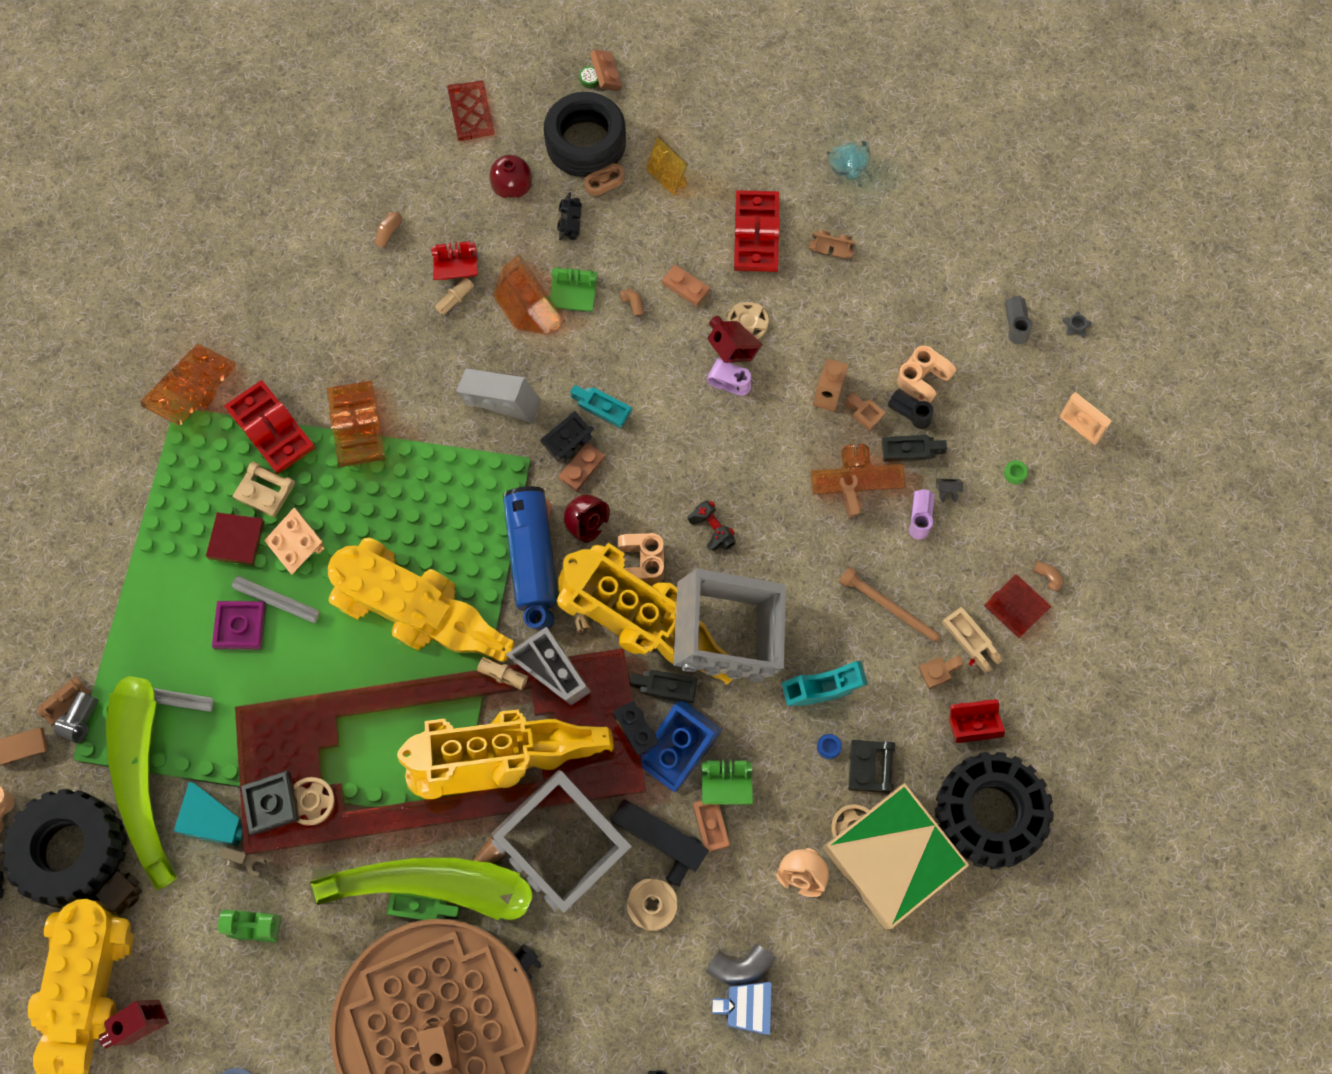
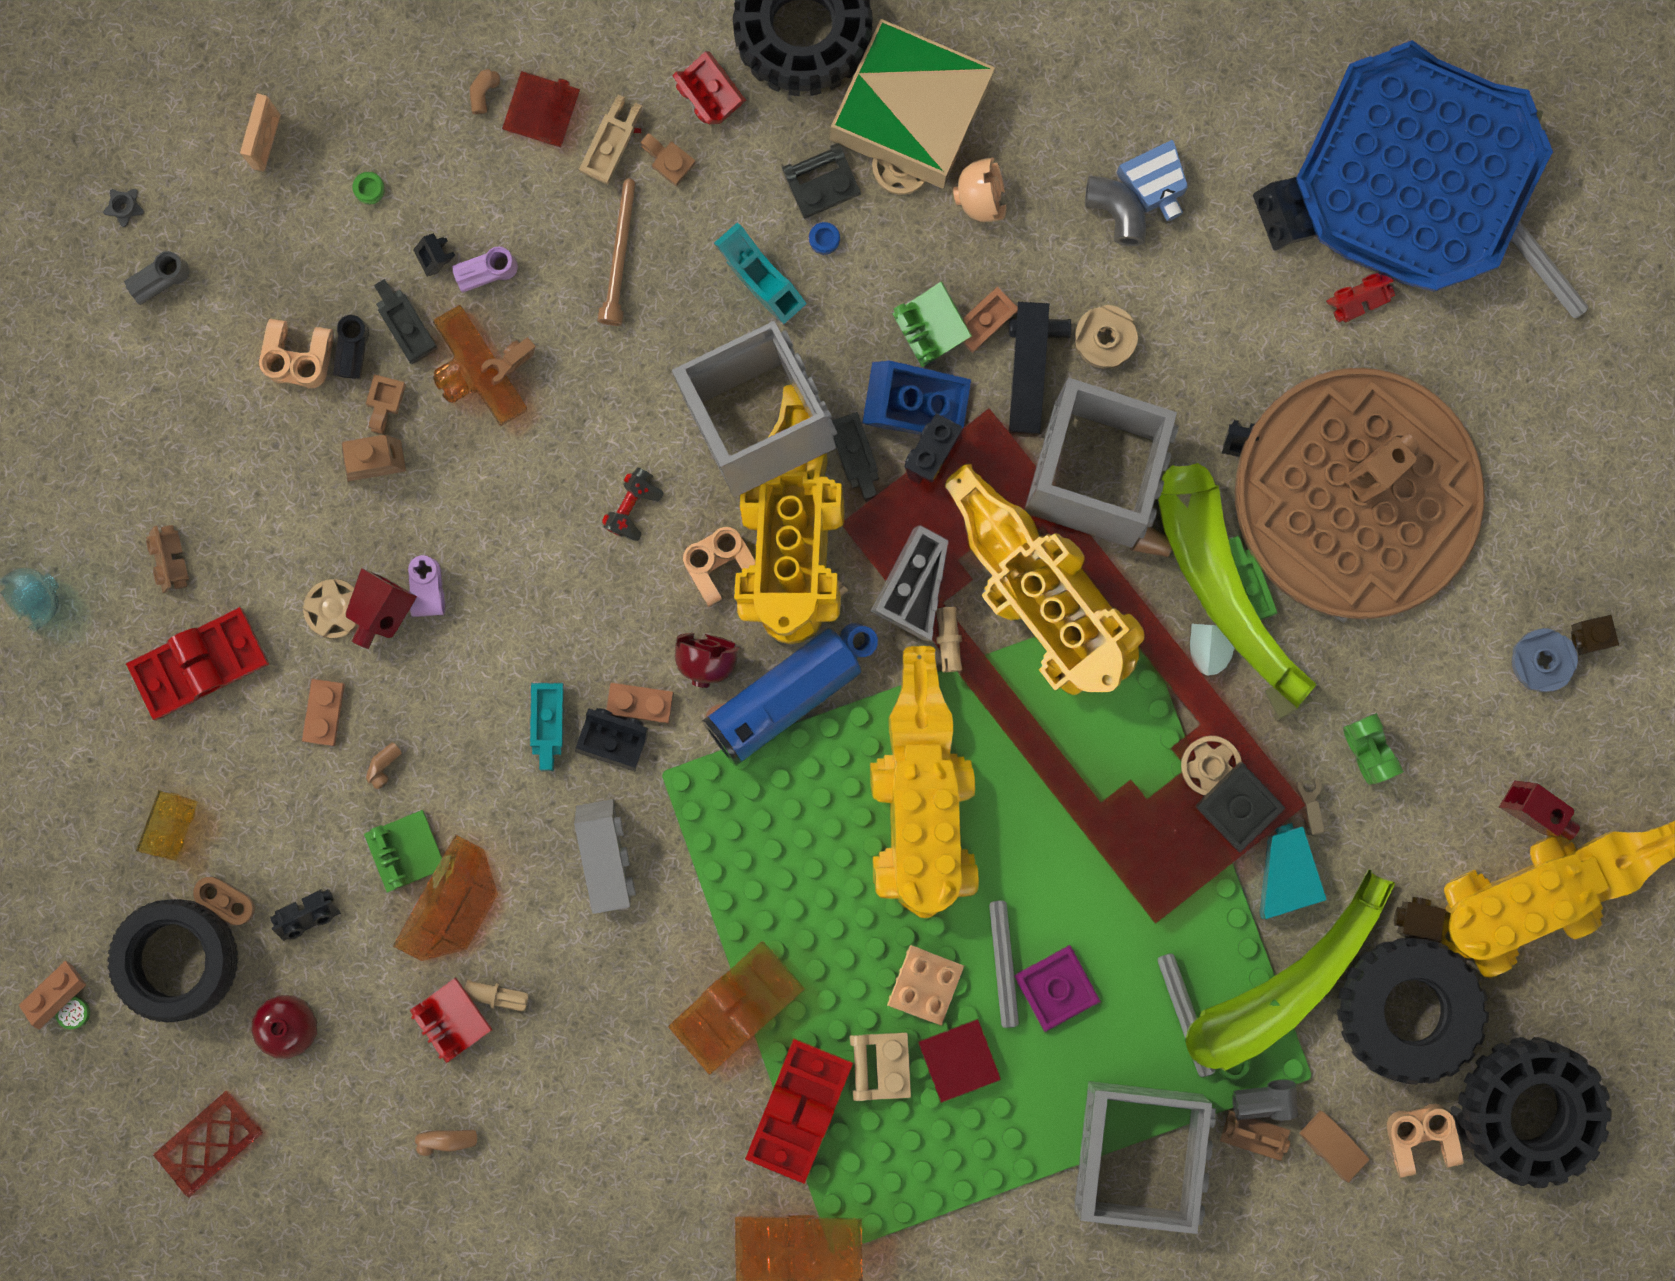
camera: 120 degrees left, 15 degrees up
(65, 592) = (1194, 1181): none -> light grey window
(391, 849) = (1209, 649): none -> light aqua brick

